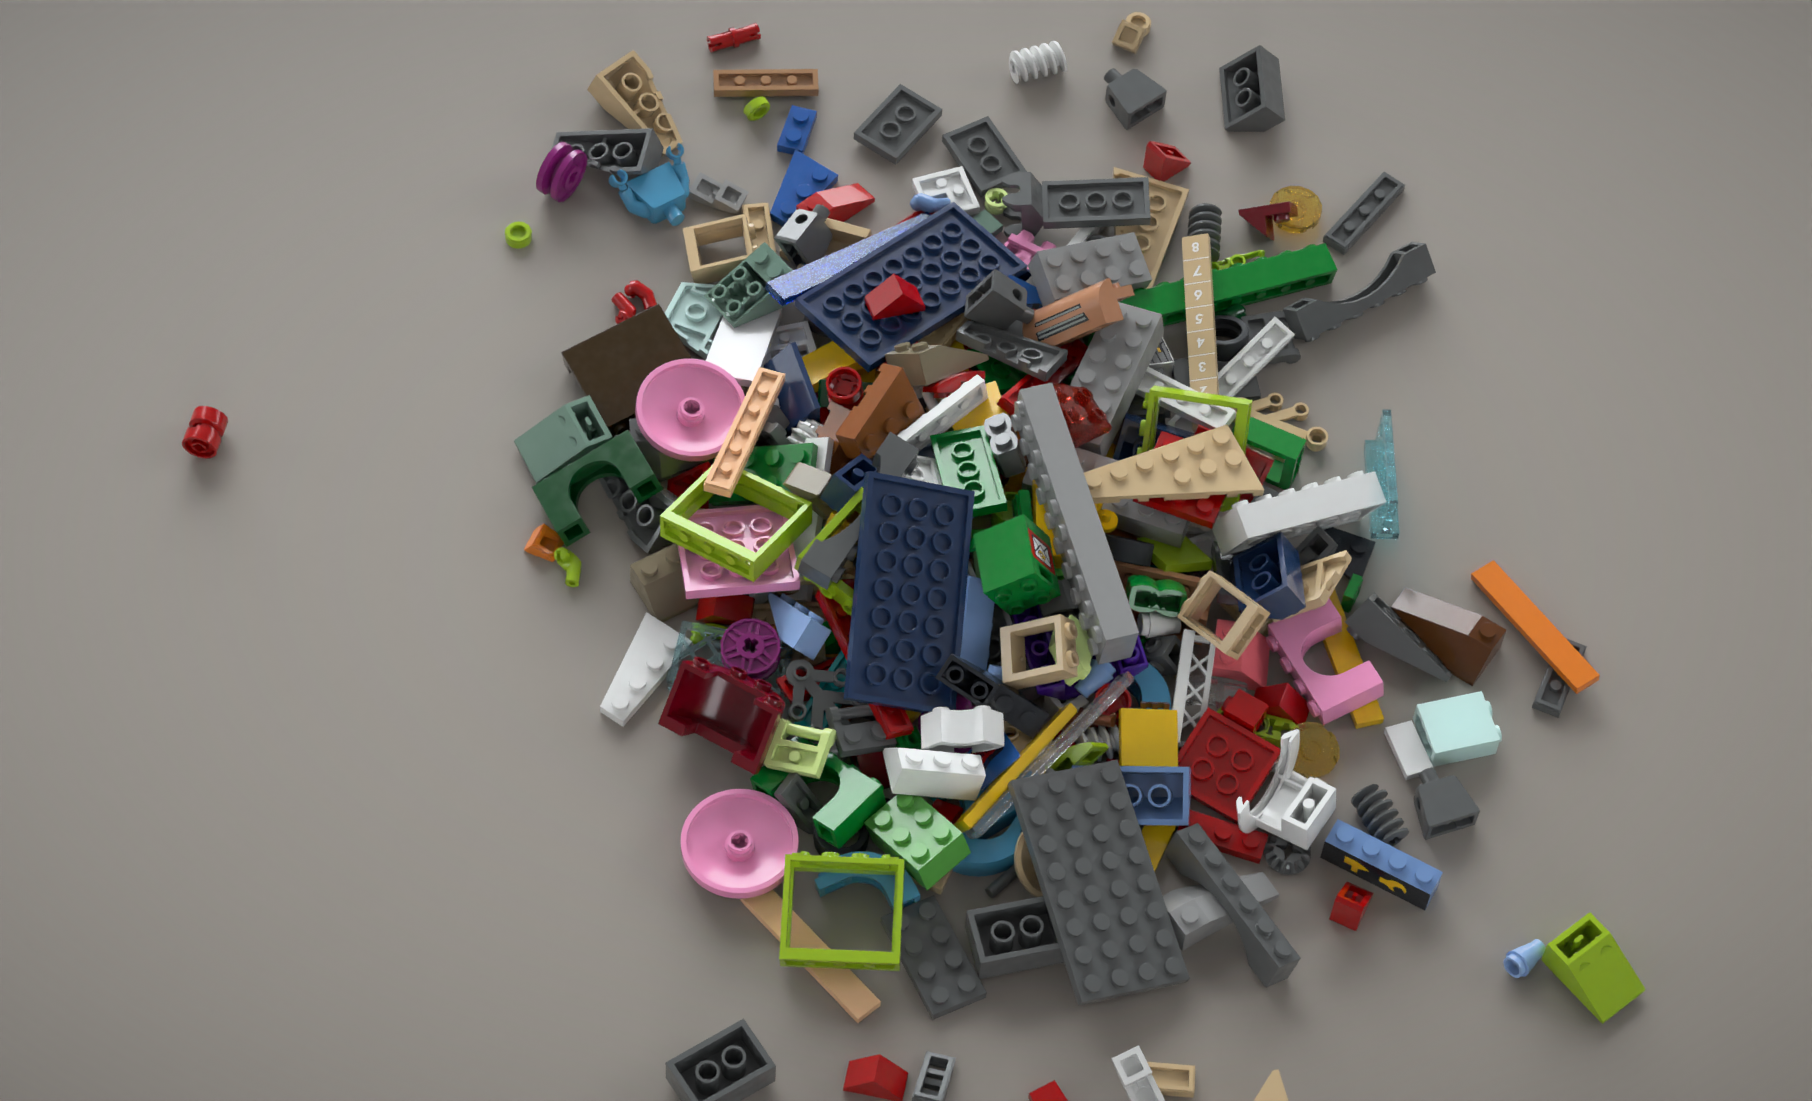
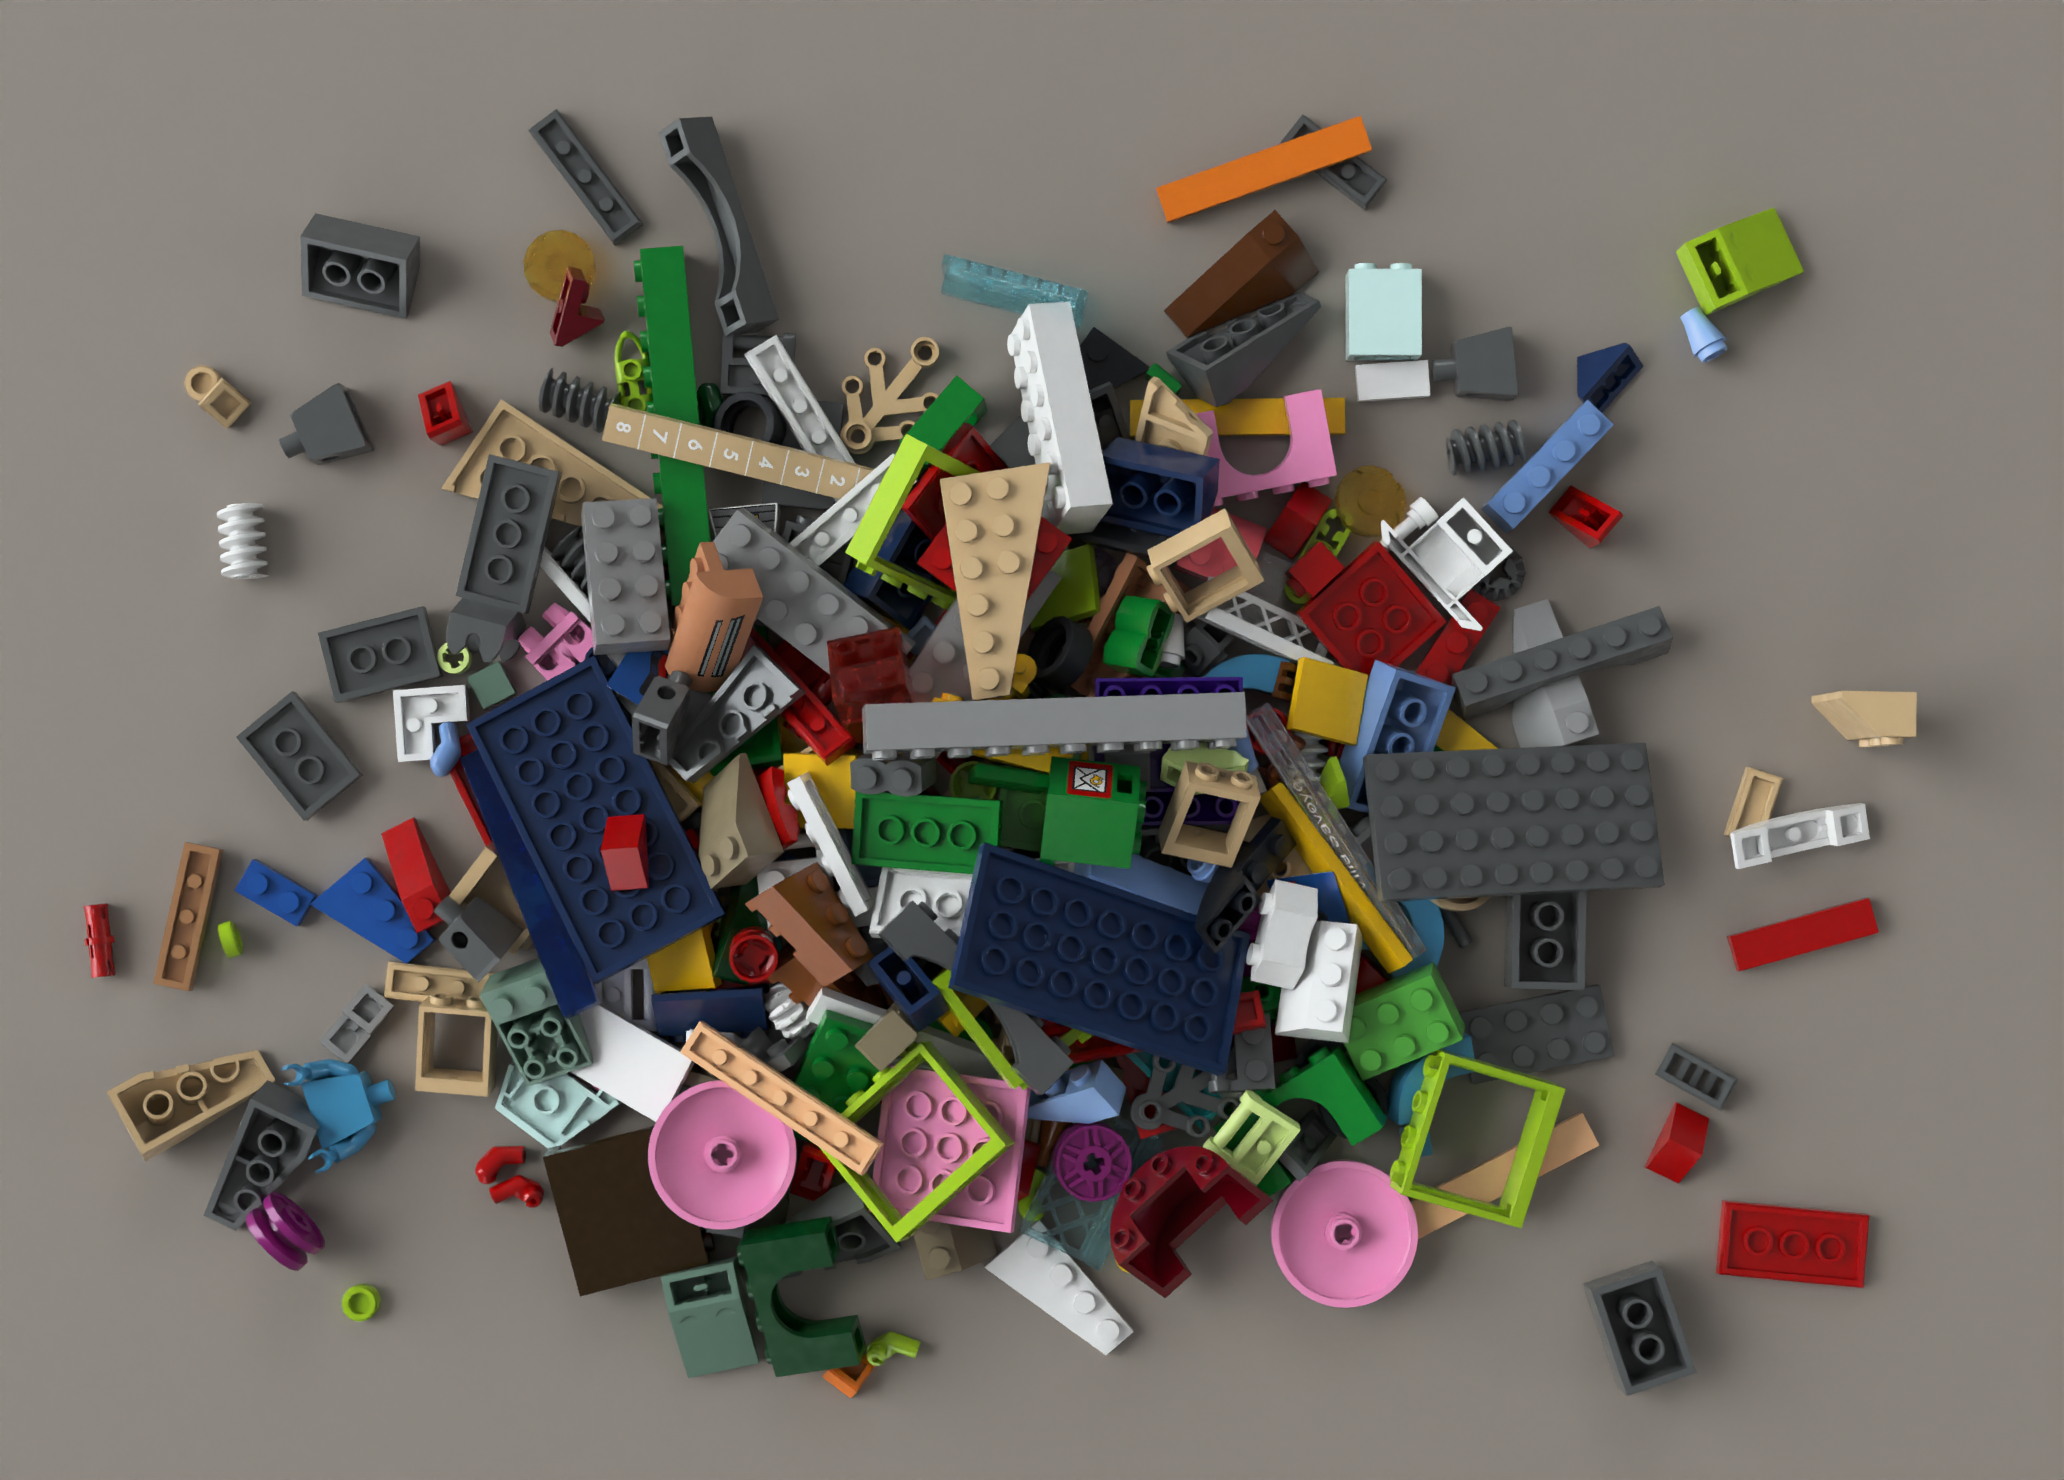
camera: 65 degrees left, 30 degrees up
(1465, 897) = (1605, 374): none -> dark blue slope

